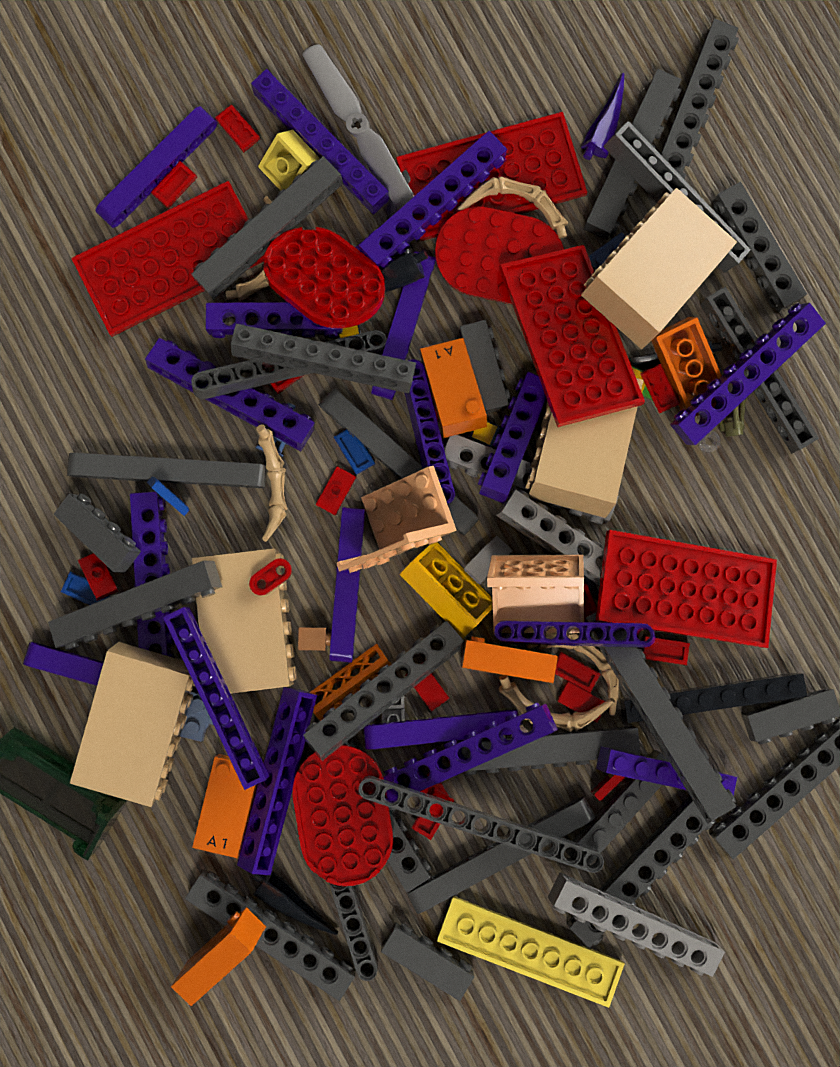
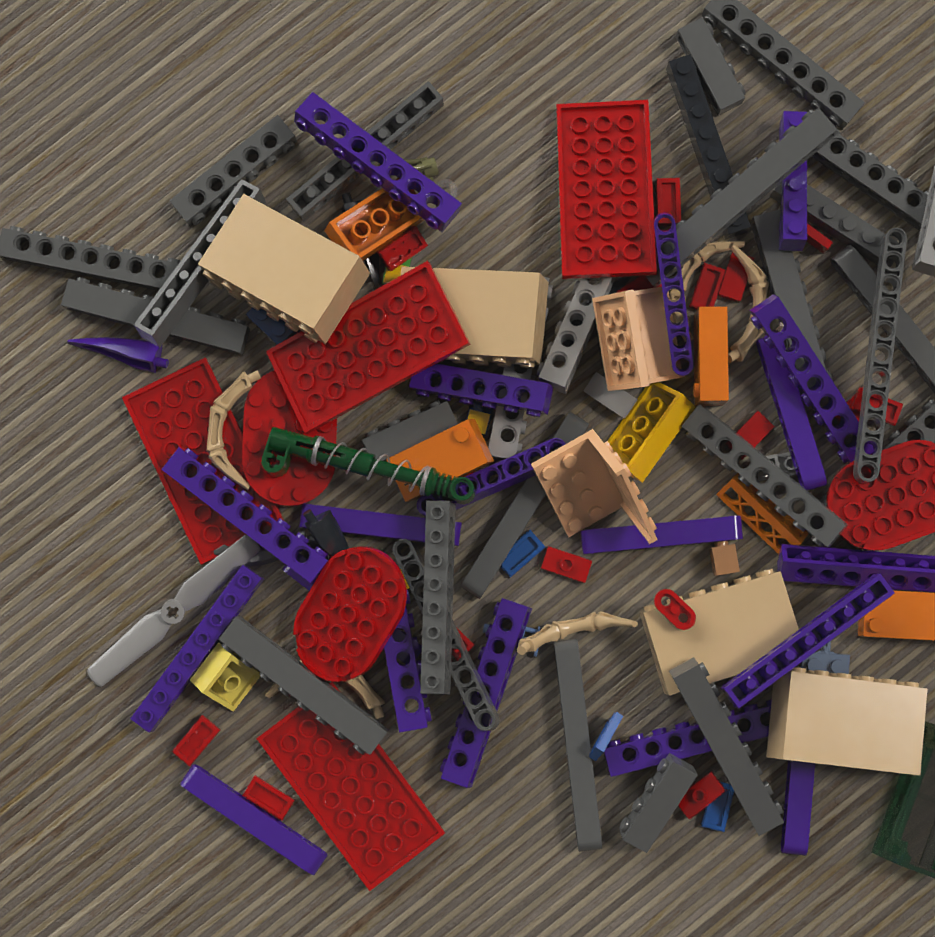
camera: 90 degrees left, 0 degrees up
(463, 309) = (358, 462): none -> dark green piece

